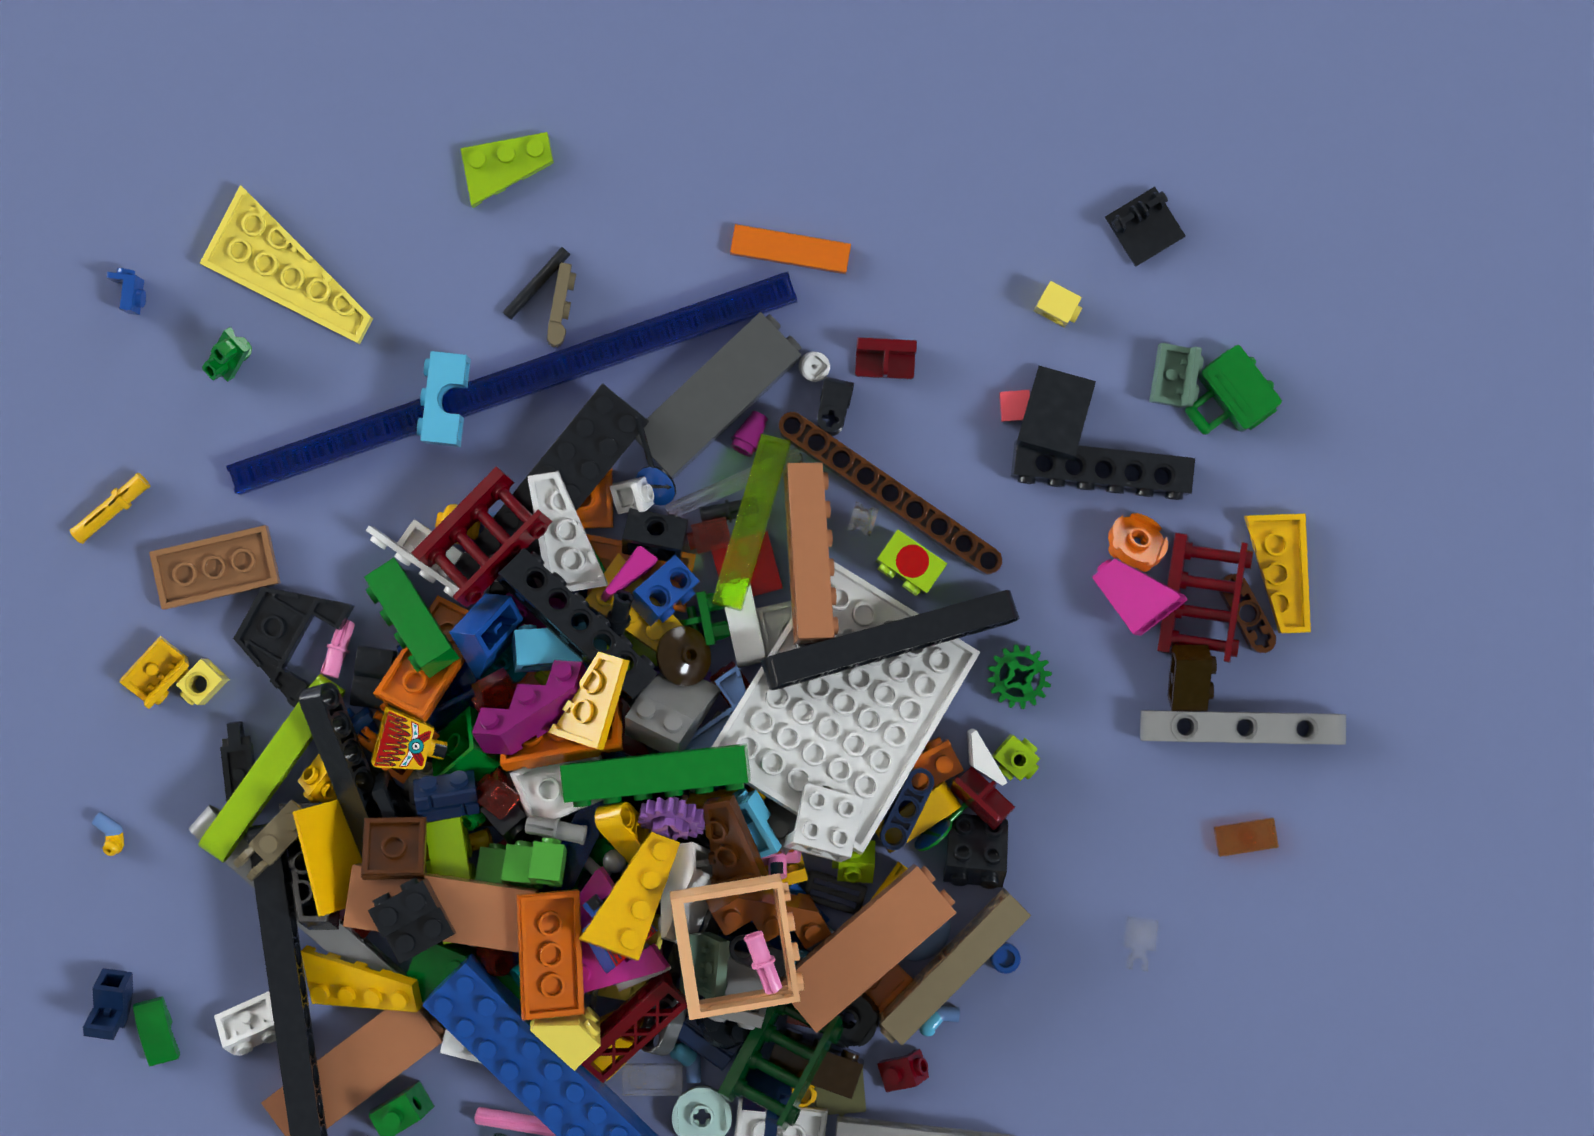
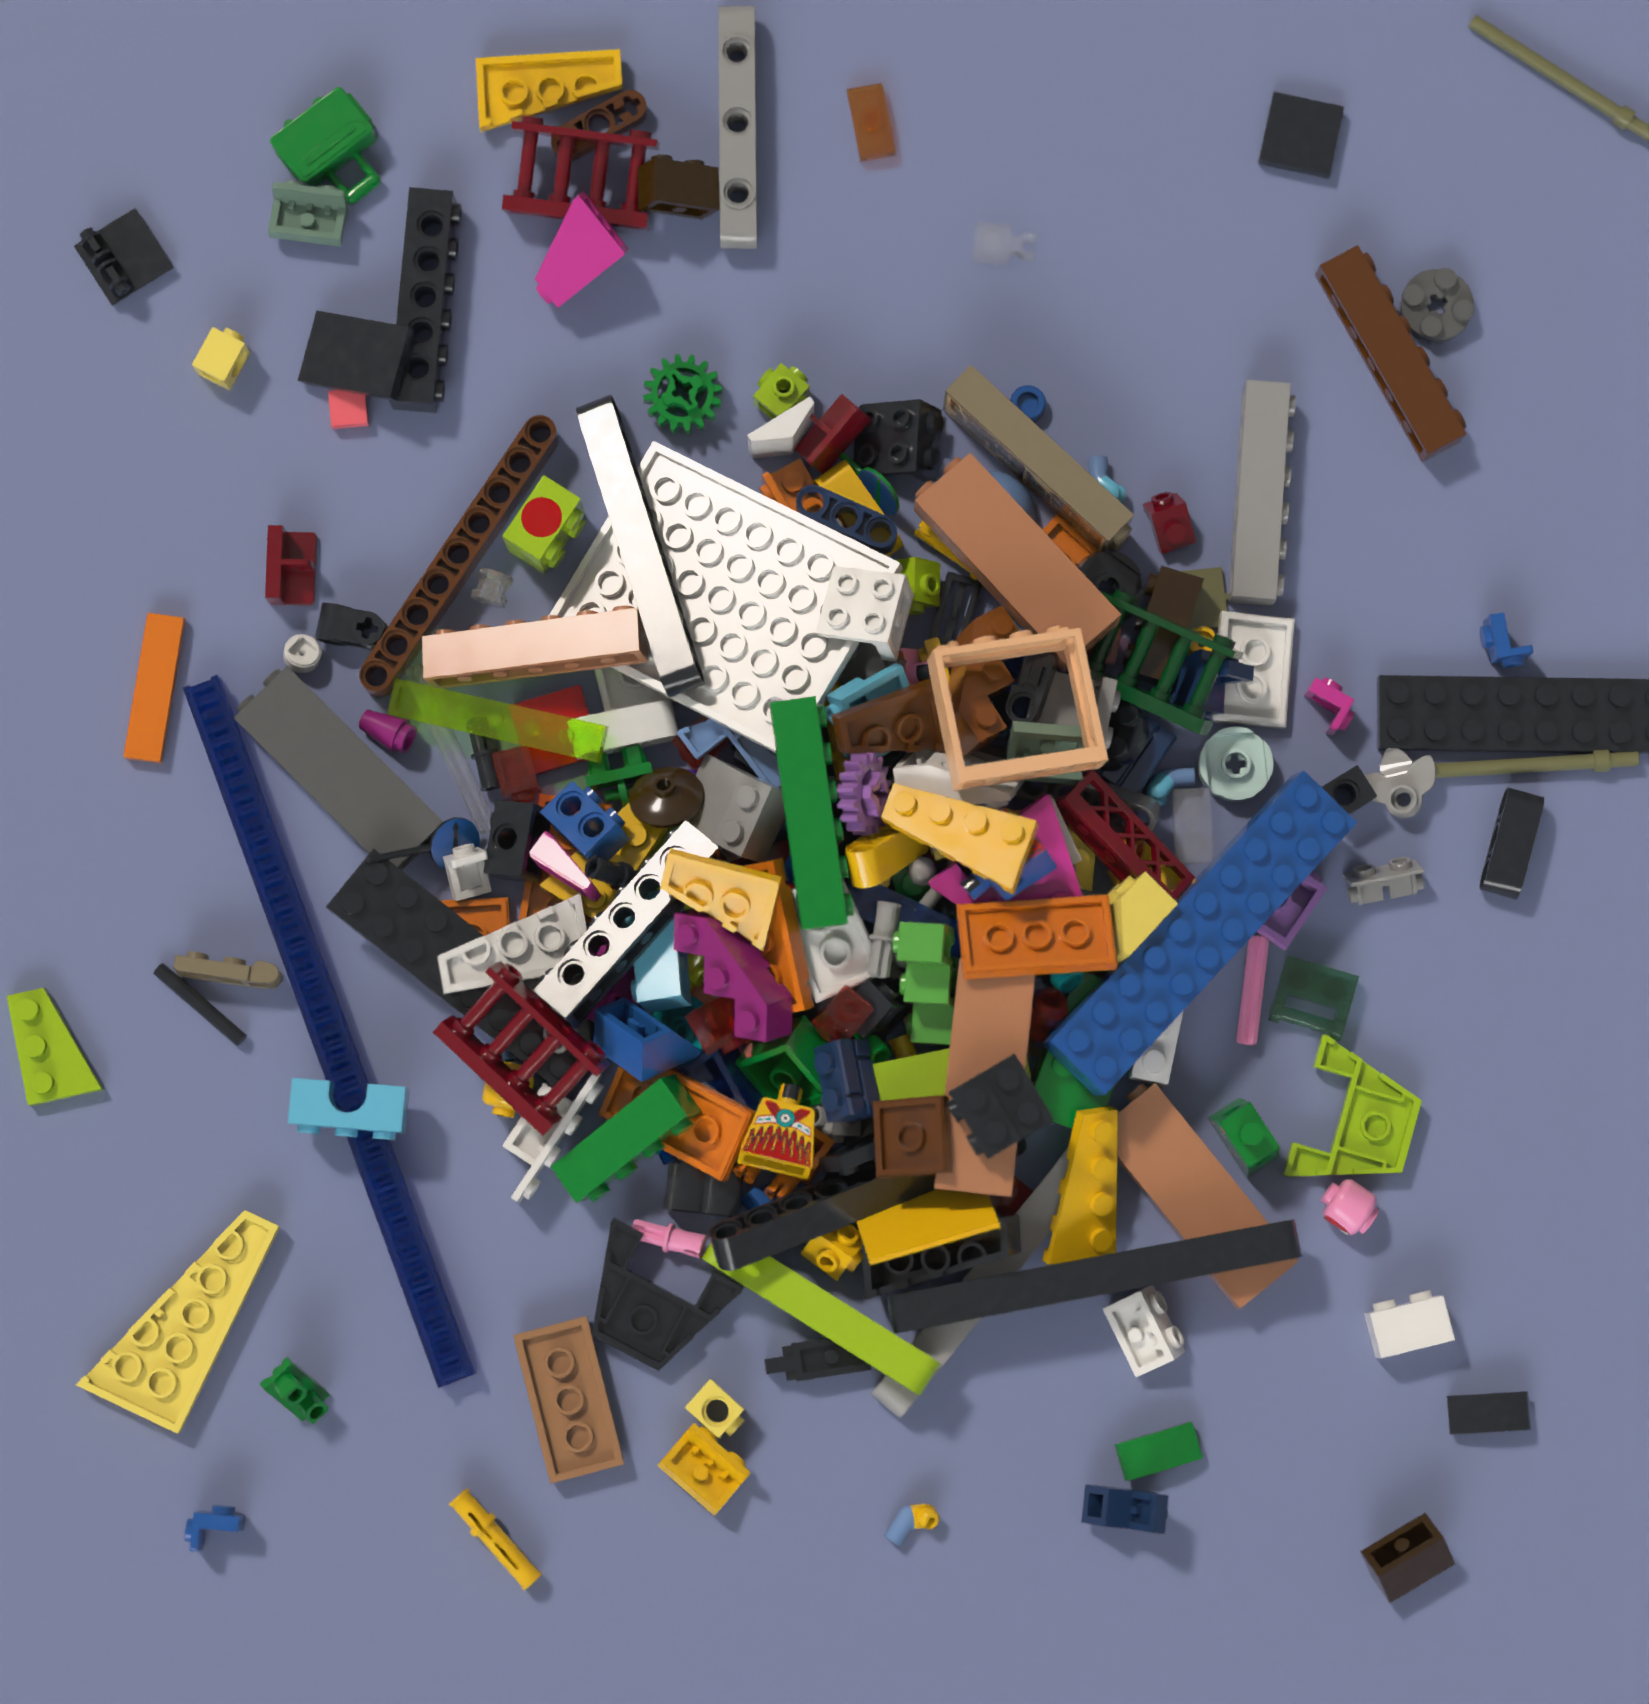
camera: 90 degrees left, 5 degrees down
(271, 841) = (907, 1295): dark tan hinge -> none
(763, 962) = (1033, 669): bright pink axle -> none
(1123, 546) = (529, 248): orange plate -> none

